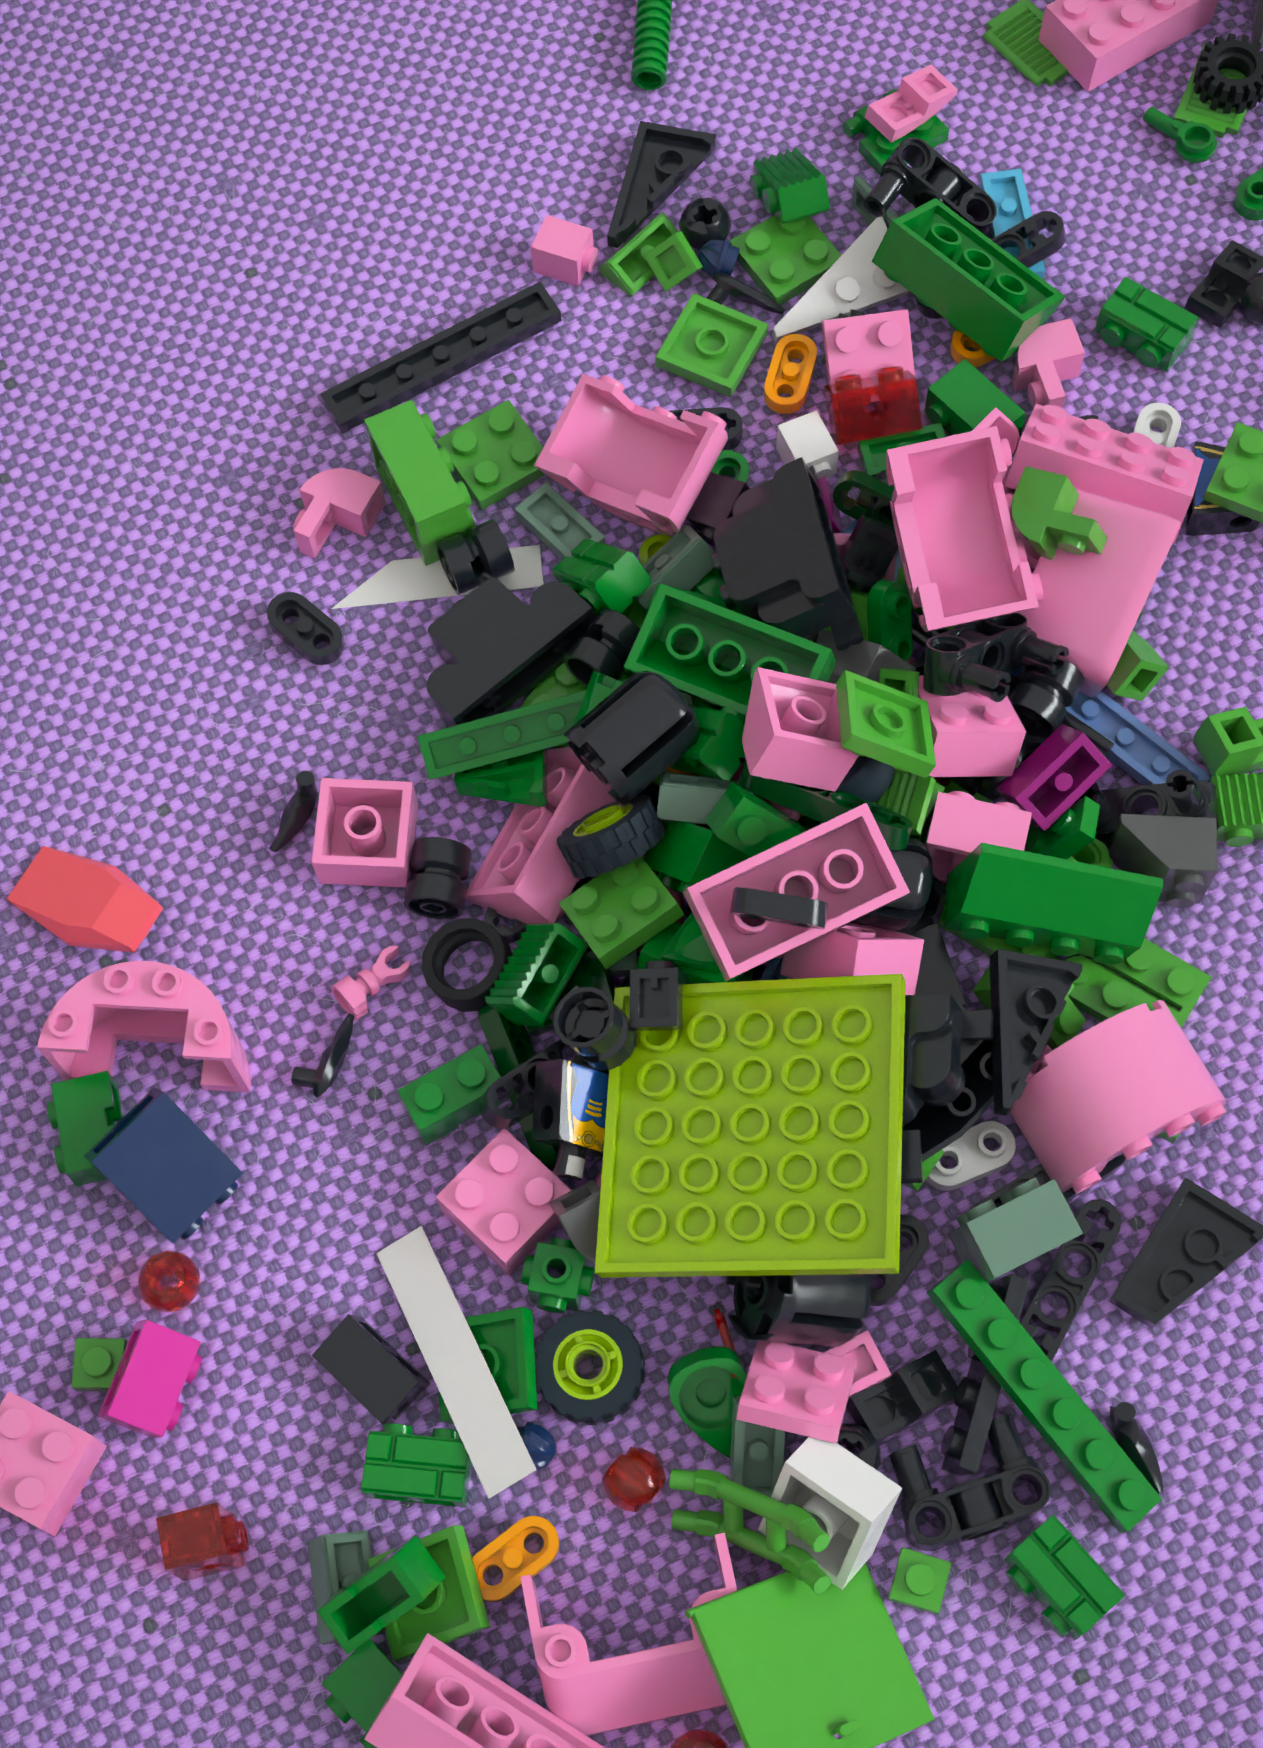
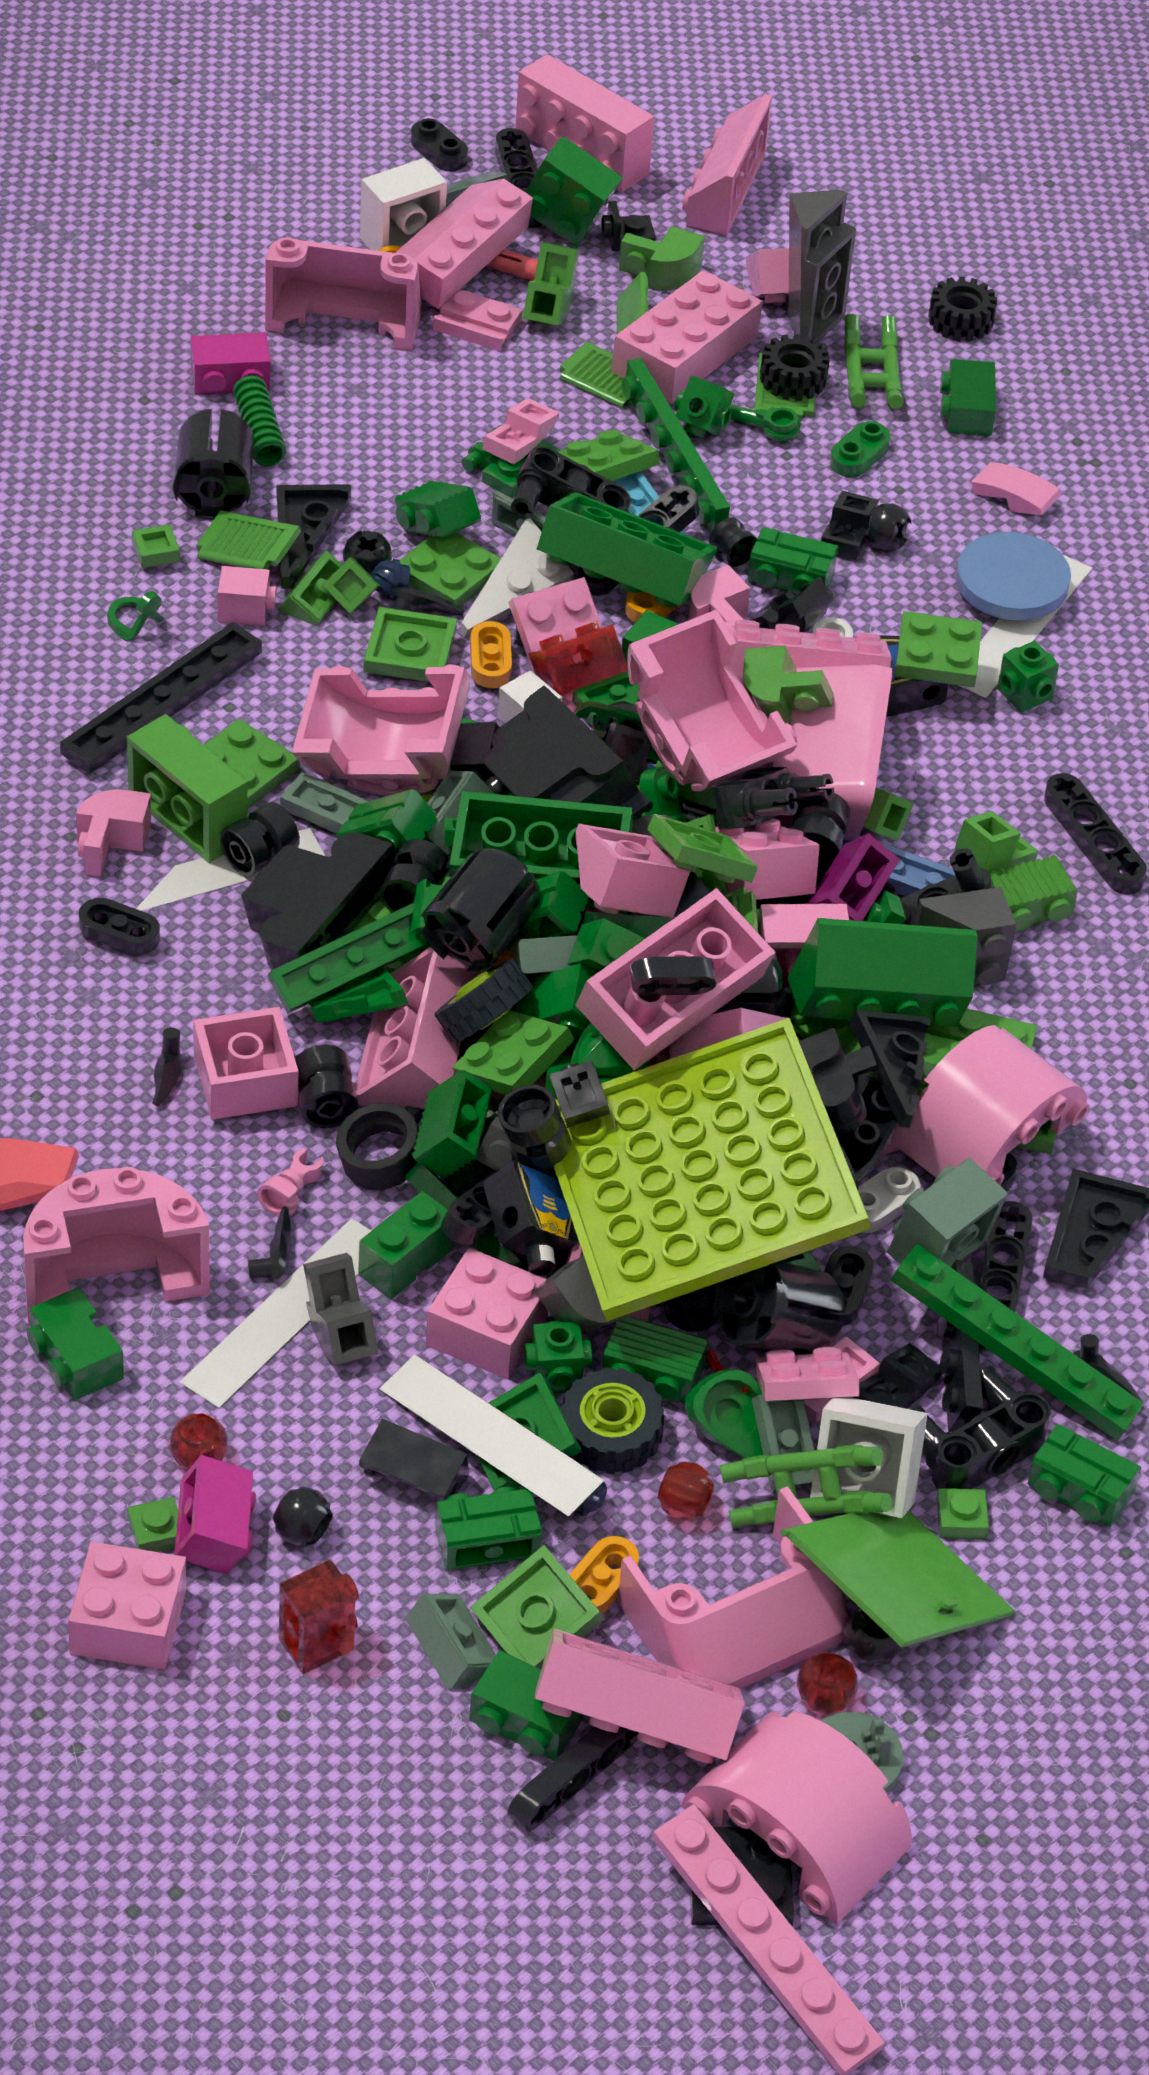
camera: 25 degrees left, 20 degrees down
(165, 1166) = (165, 1344): dark blue brick -> none
(238, 1401) = (302, 1516): none -> black piece
(321, 1130) = (266, 1327): none -> white sticker
(356, 1164) = (335, 1310): none -> dark grey brick
(381, 1594) = (502, 1604): green brick -> none
(455, 248) = (146, 606): none -> green piece
(497, 170) = (155, 546): none -> bright green plate
(582, 84) = (200, 464): none -> black cylinder
(588, 183) = (246, 541): none -> bright green window
(663, 1308) = (659, 1354): none -> green brick
(992, 151) = (612, 454): none -> bright green plate
(1071, 165) = (673, 442): none -> green plate
(1091, 283) = (733, 541): none -> black wheel
(1116, 108) = (703, 407): none -> green brick
(1123, 389) = (797, 609): none -> black cylinder

